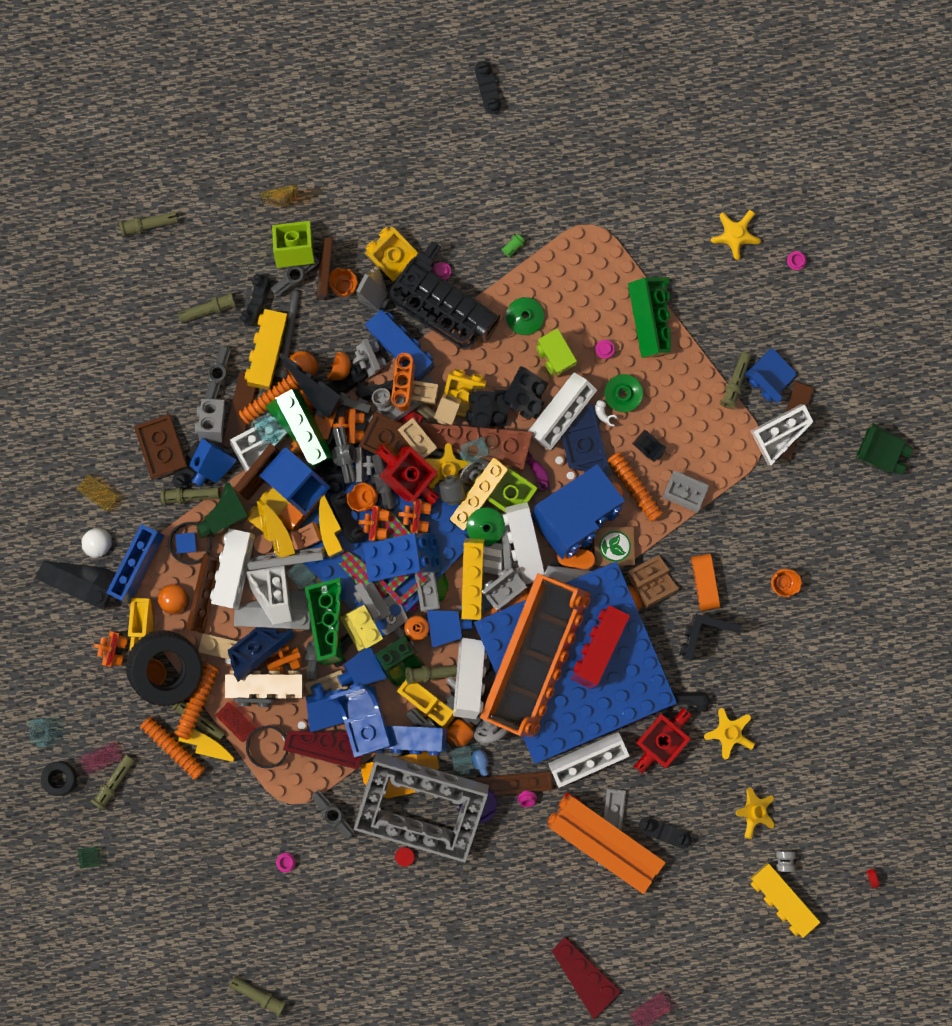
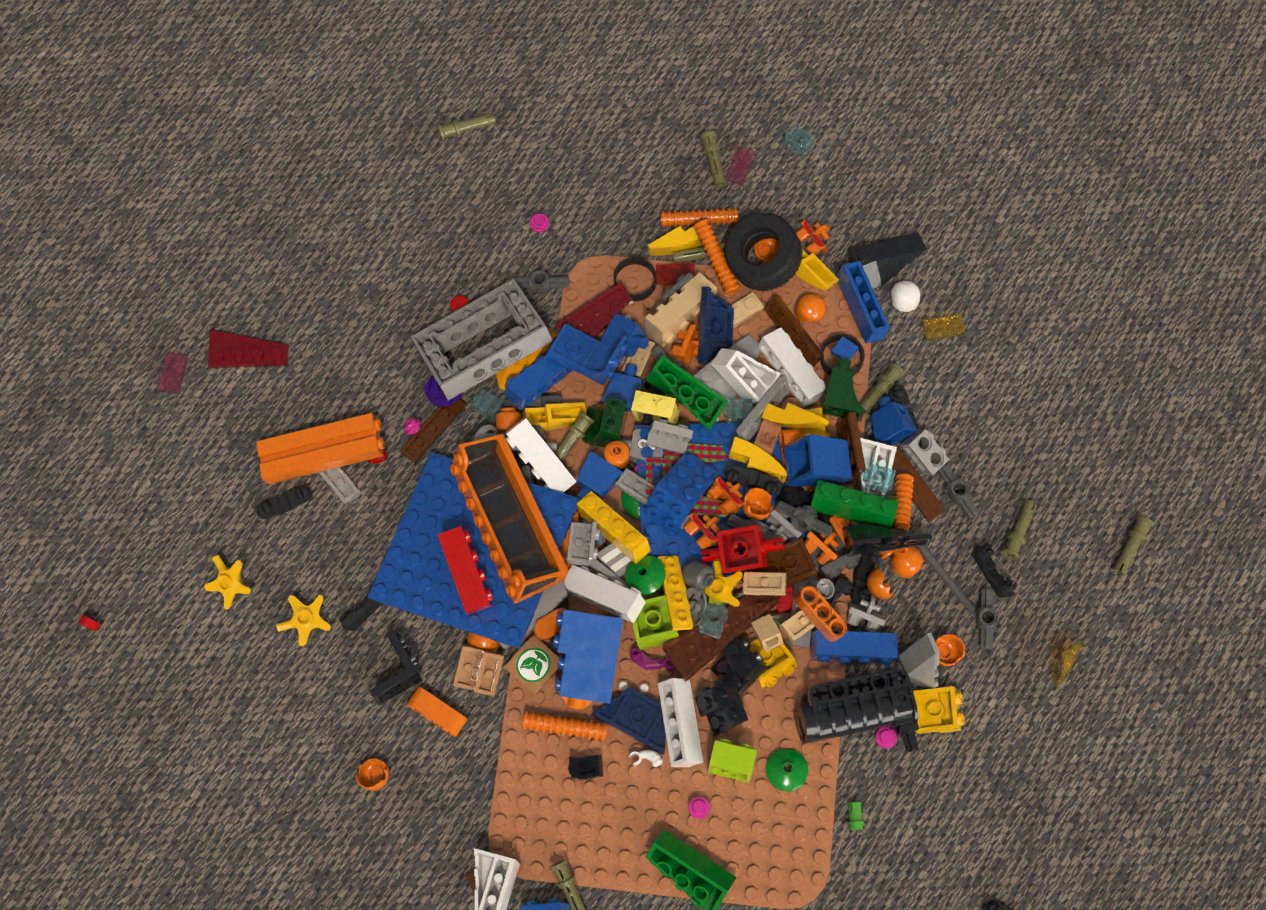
camera: 135 degrees right, 15 degrees down
(46, 778) = (750, 136): black tyre -> none
(88, 857) = (676, 99): clear green plate -> none
(161, 447) = (938, 401): reddish brown tile -> none
(267, 349) = (945, 543): yellow brick -> none
(293, 244) = (1015, 636): lime brick -> none
(324, 268) = (972, 642): reddish brown tile -> none
(480, 761) = (472, 418): medium blue cylinder -> none
(588, 759) = (393, 494): white brick -> none
(623, 383) = (648, 776): green dish -> none
(675, 741) = (339, 557): red brick -> none
(685, 491) = (521, 761): light grey bracket -> none
(784, 900) = (143, 541): yellow brick -> none
(785, 866) = (170, 570): light grey wheel -> none

